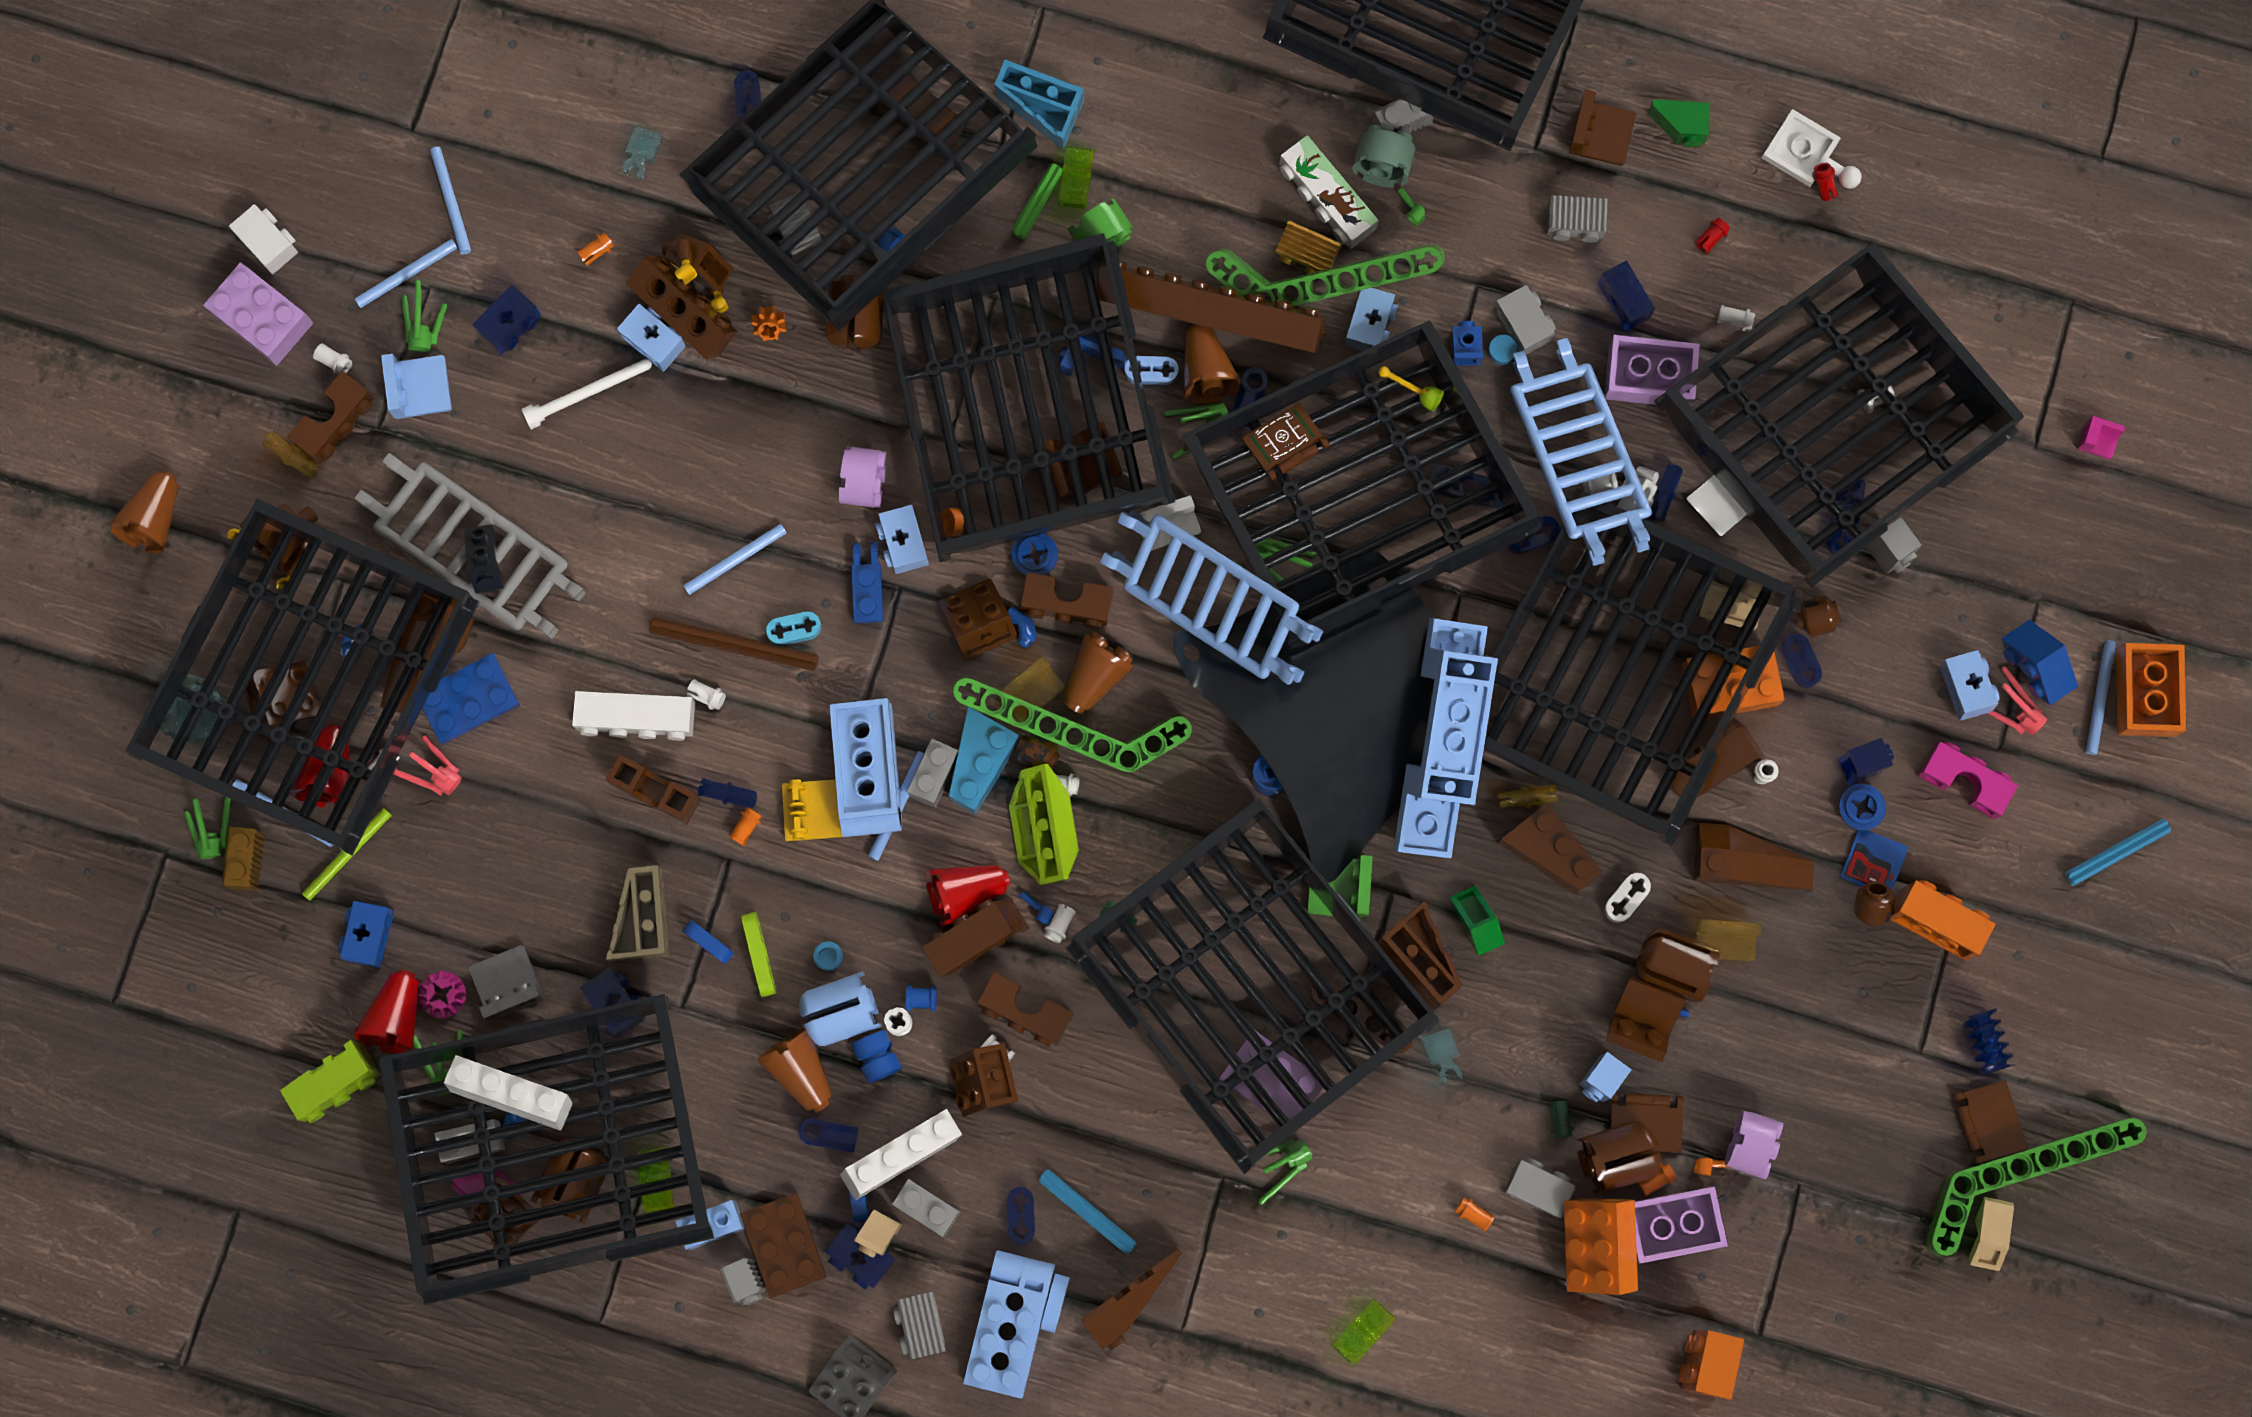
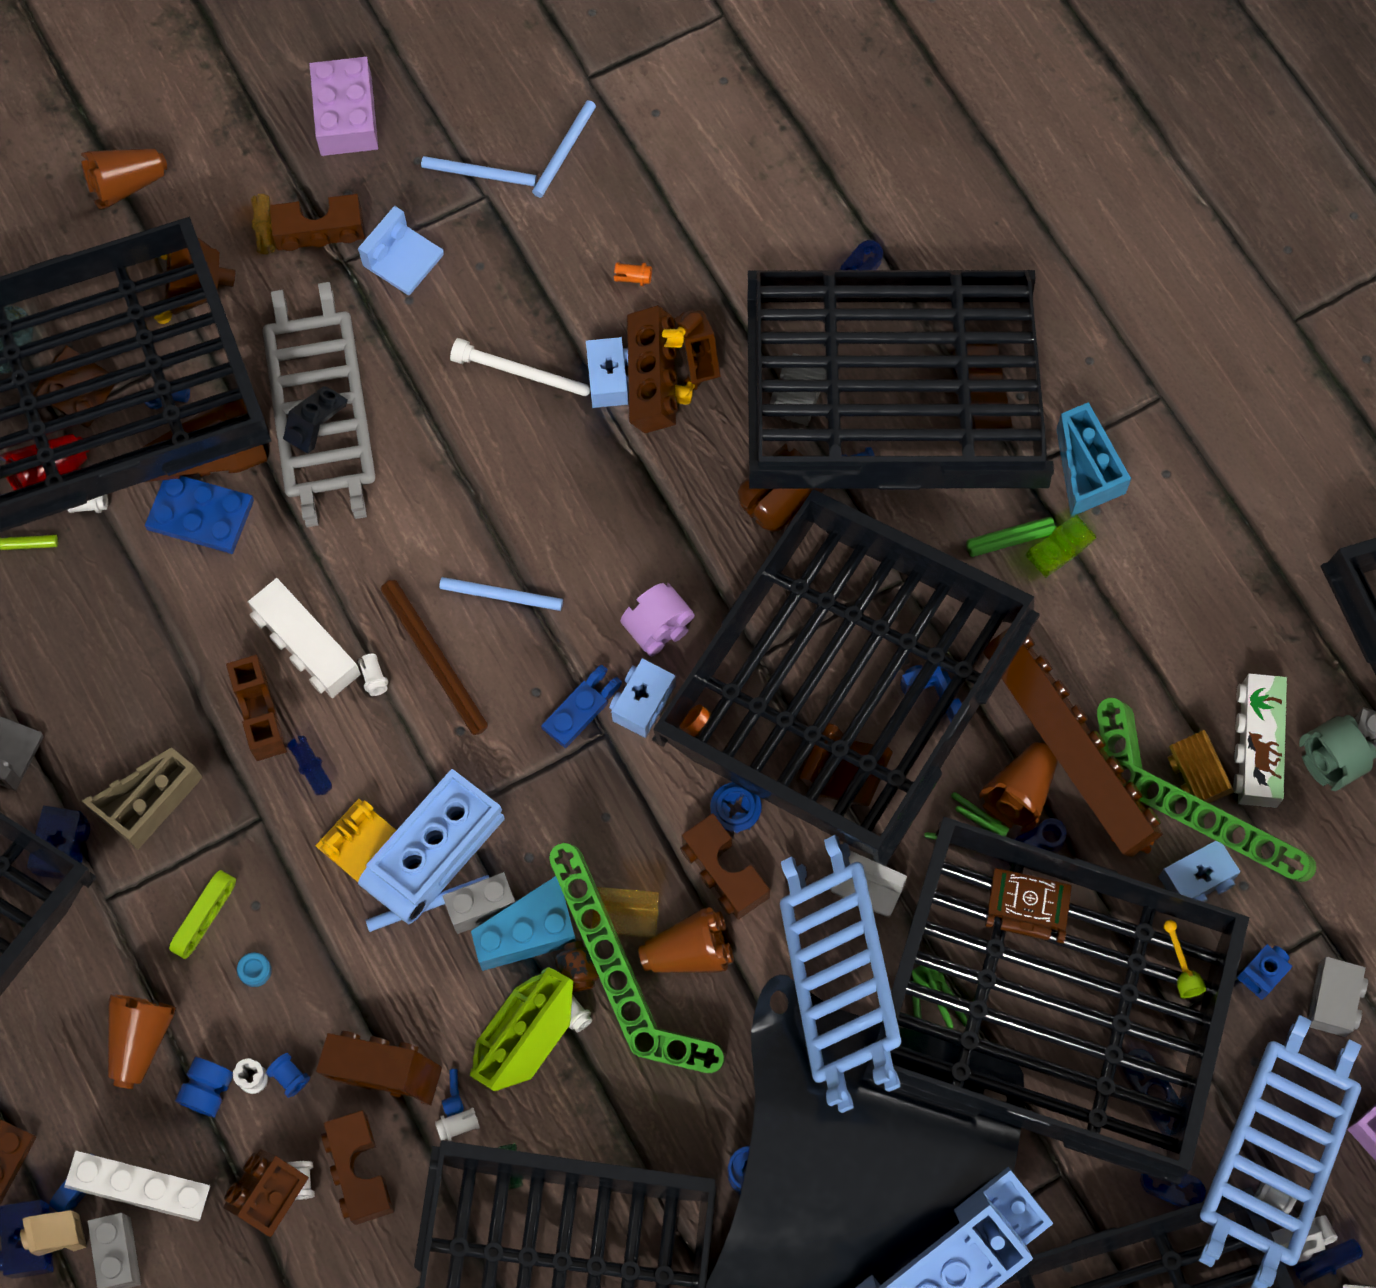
camera: 45 degrees right, 10 degrees down
(263, 239) = (403, 59): white brick -> none
(332, 359) = (362, 183): white pin -> none
(418, 335) = (440, 221): bright green plant -> none
(444, 779) = (119, 555): coral plant -> none
(510, 306) = (524, 256): clear blue brick -> none
(642, 147) = (741, 231): clear light blue plate -> none
(708, 942) = (175, 866): blue beam -> none
(745, 826) = (297, 804): orange pin -> none
(768, 323) = (706, 440): orange gear -> none
(794, 621) = (487, 694): medium azure beam -> none
(832, 1135) = (105, 1115): clear blue piece -> none
(844, 1022) = (207, 1035): light blue cylinder -> none
(961, 889) = (410, 1019): red cone -> none
(978, 619) = (638, 815): reddish brown bracket -> none
(1025, 627) = (671, 857): blue arm -> none
(1106, 220) = (1051, 598): bright green brick -> none
(1154, 363) = (984, 747): light blue beam -> none
(1417, 212) = (1322, 825): bright green hand -> none
(1502, 349) = (1293, 1003): dark azure tile -> none

